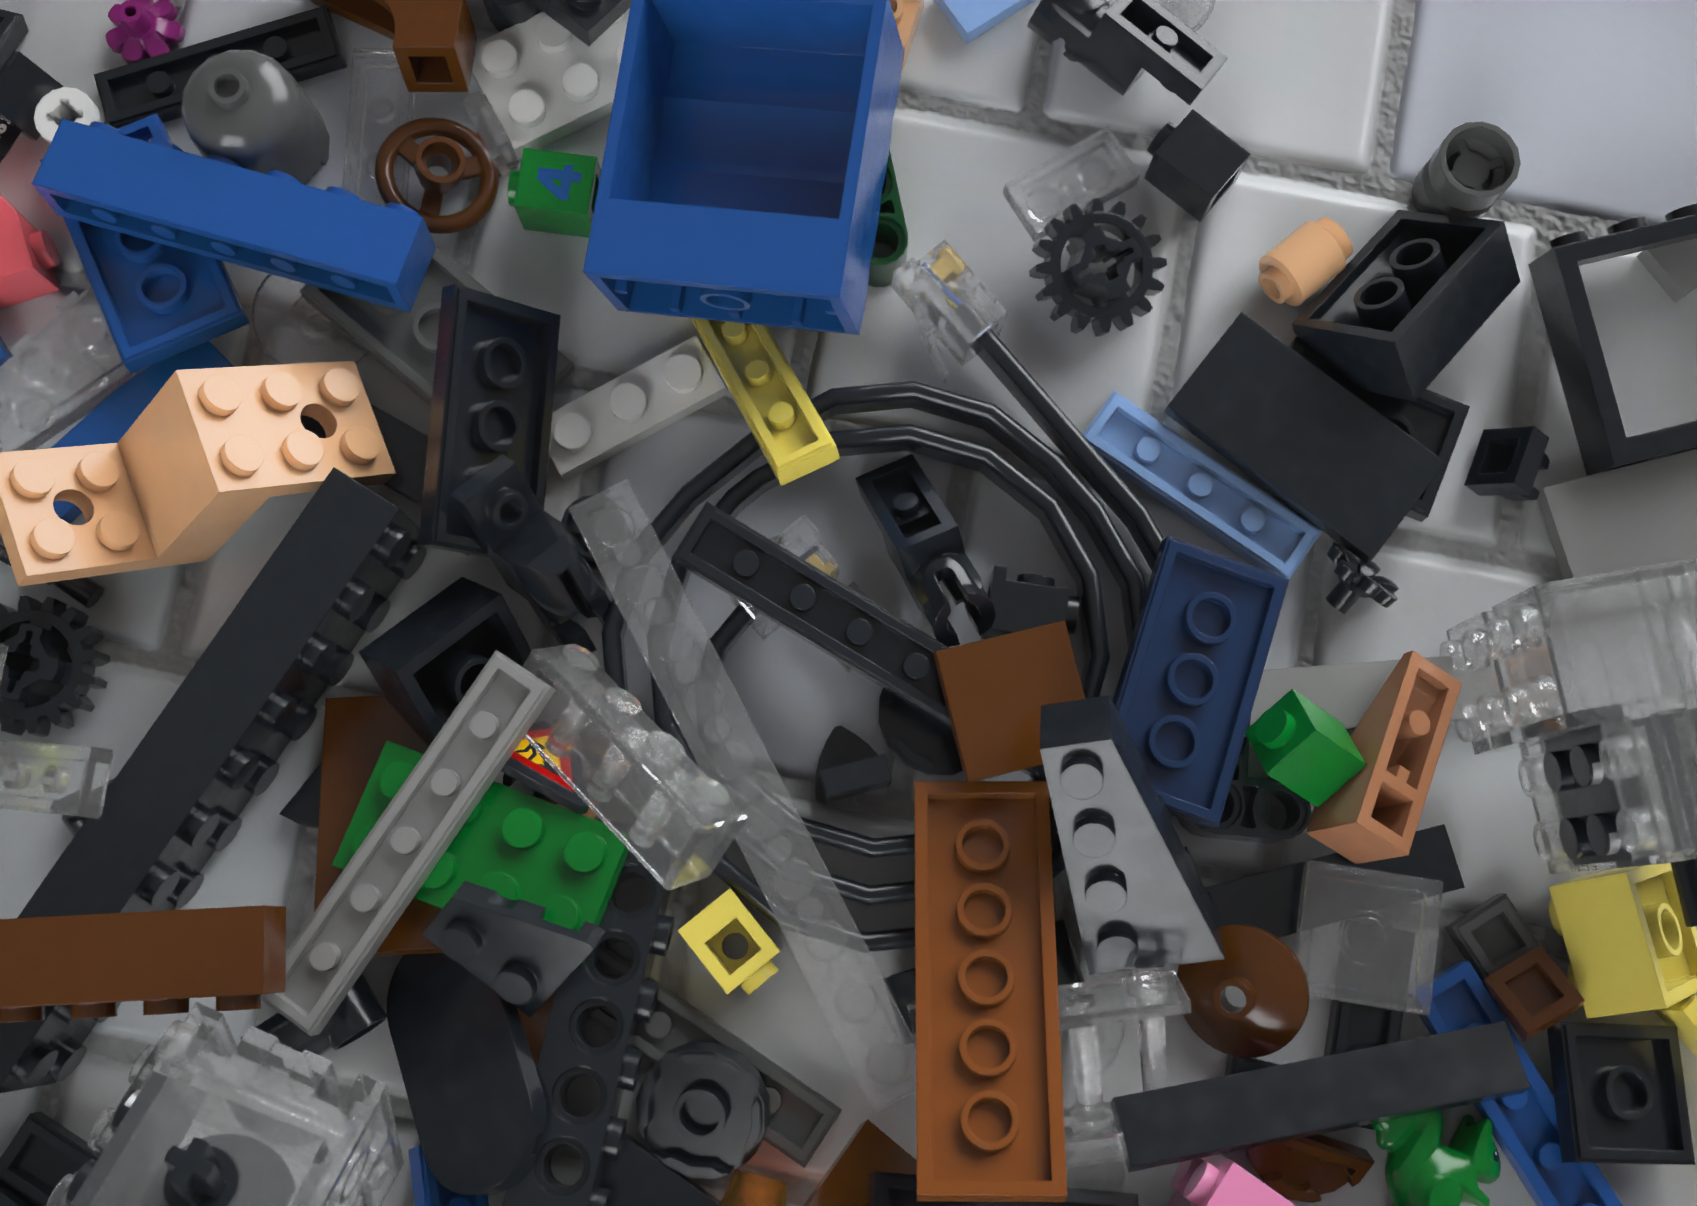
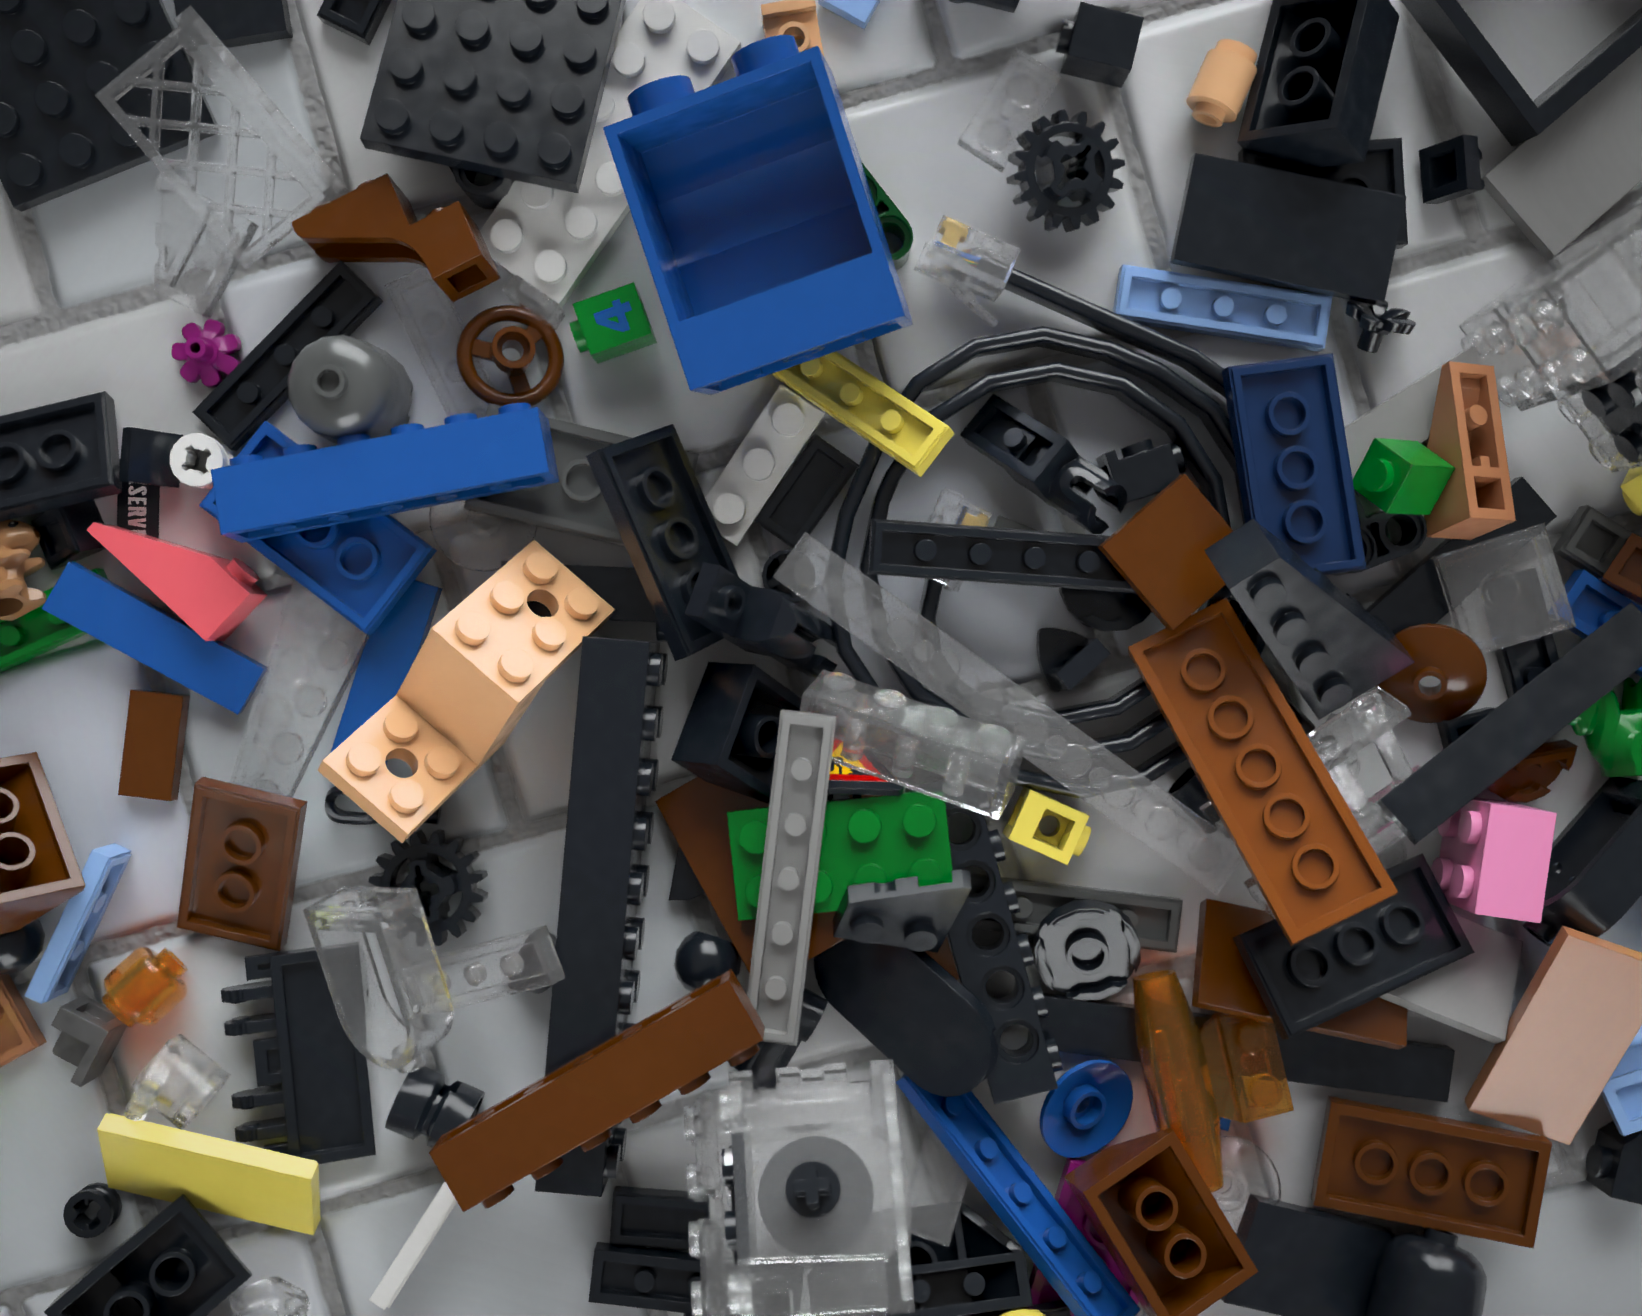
camera: 25 degrees left, 10 degrees up
(279, 885) = (704, 958): none -> black piece
(665, 456) = (806, 492): none -> black tile

